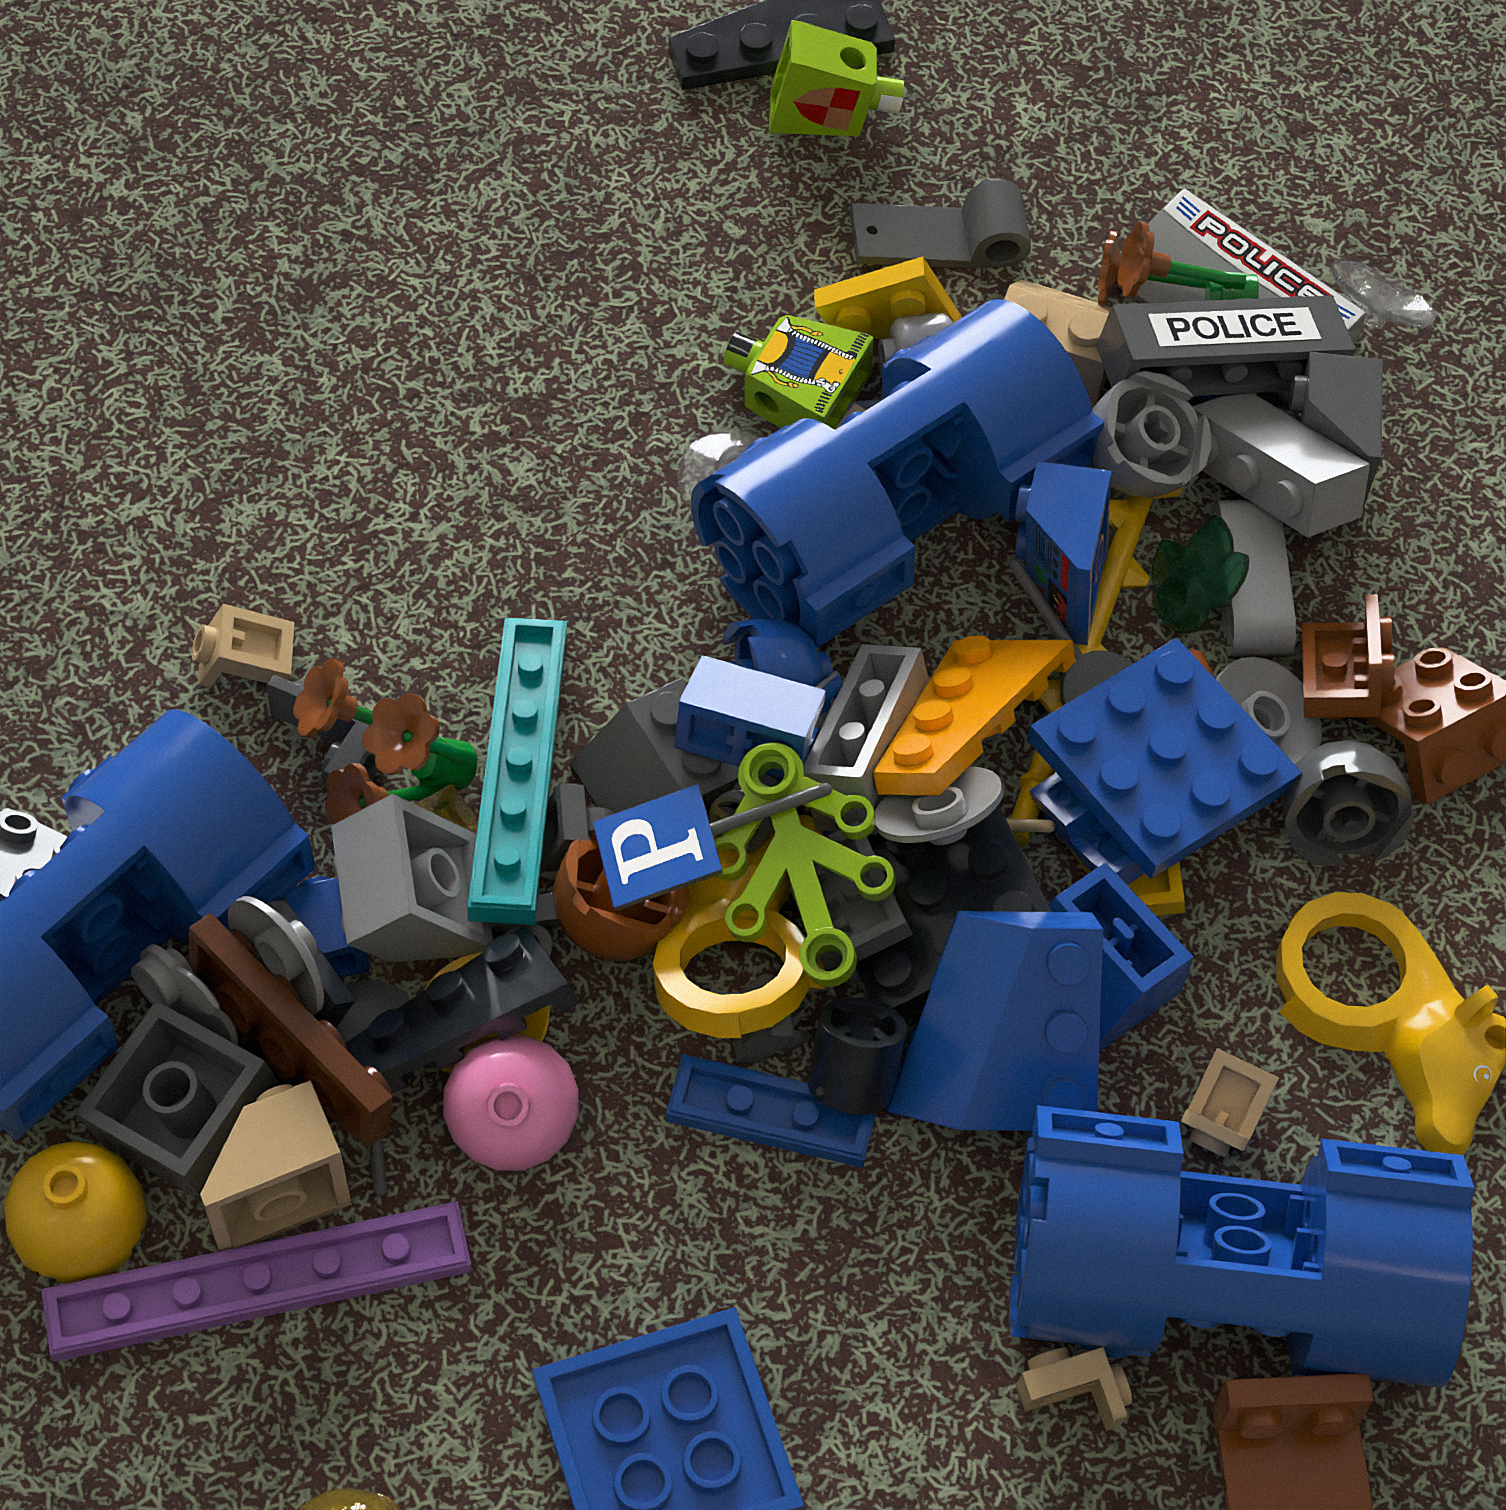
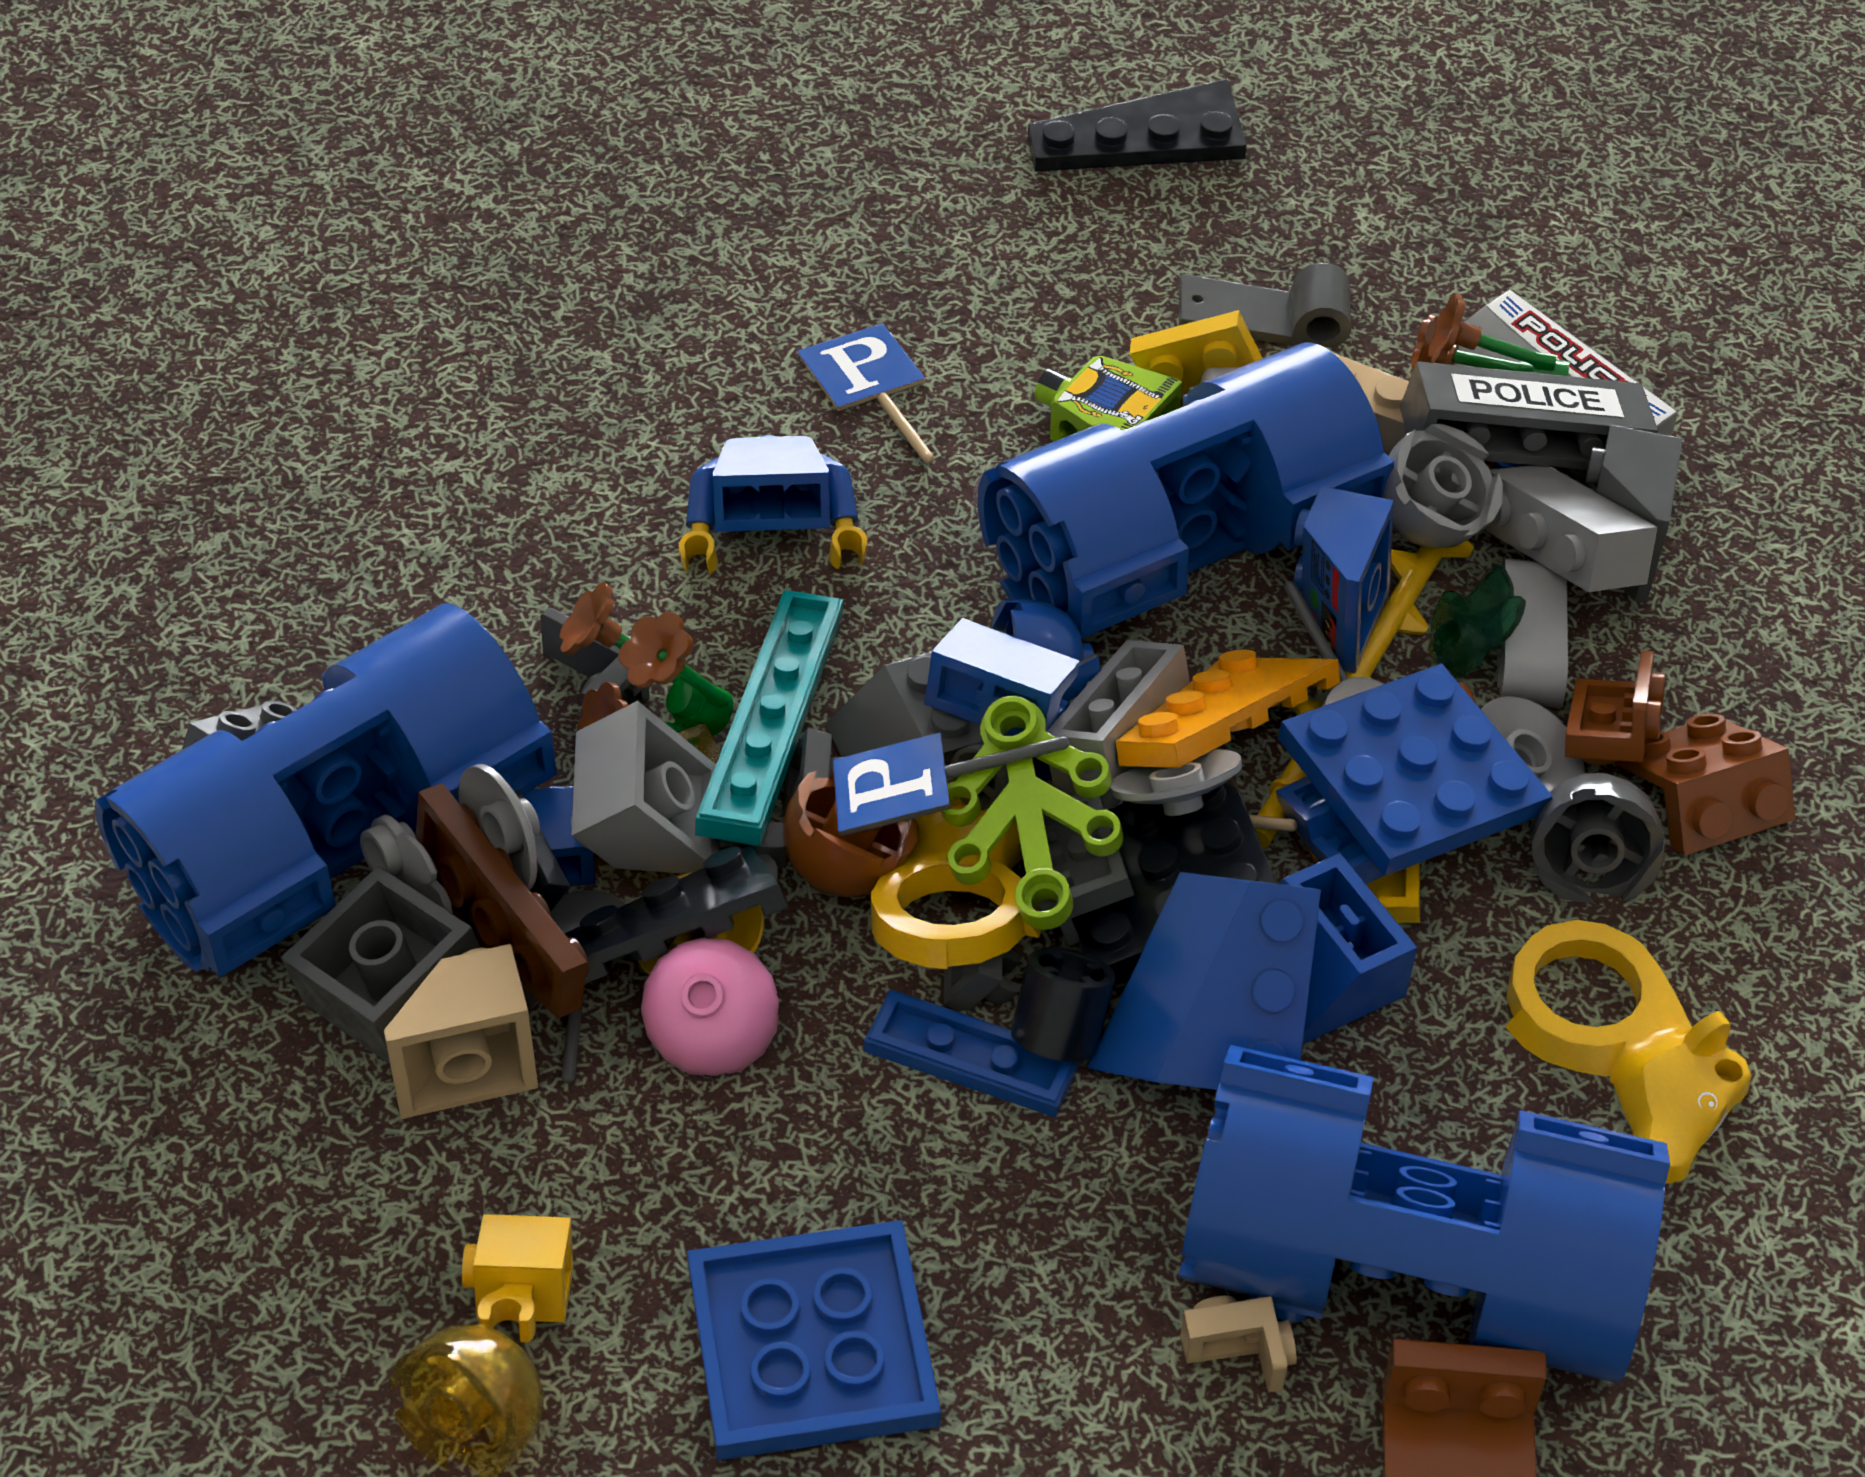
camera: 10 degrees right, 10 degrees down
(75, 1212) = (265, 1055): yellow cylinder -> none
(243, 646) = (526, 584): tan bracket -> none
(255, 1281) = (430, 1142): medium lavender tile -> none
(372, 1417) = (520, 1270): none -> yellow brick
(474, 505) = (771, 487): none -> blue torso
(547, 345) = (863, 369): none -> blue piece
(828, 84) = (1174, 171): lime torso -> none
(1228, 1103) = (1438, 1098): tan bracket -> none
(1381, 295) = (1694, 403): clear dish -> none

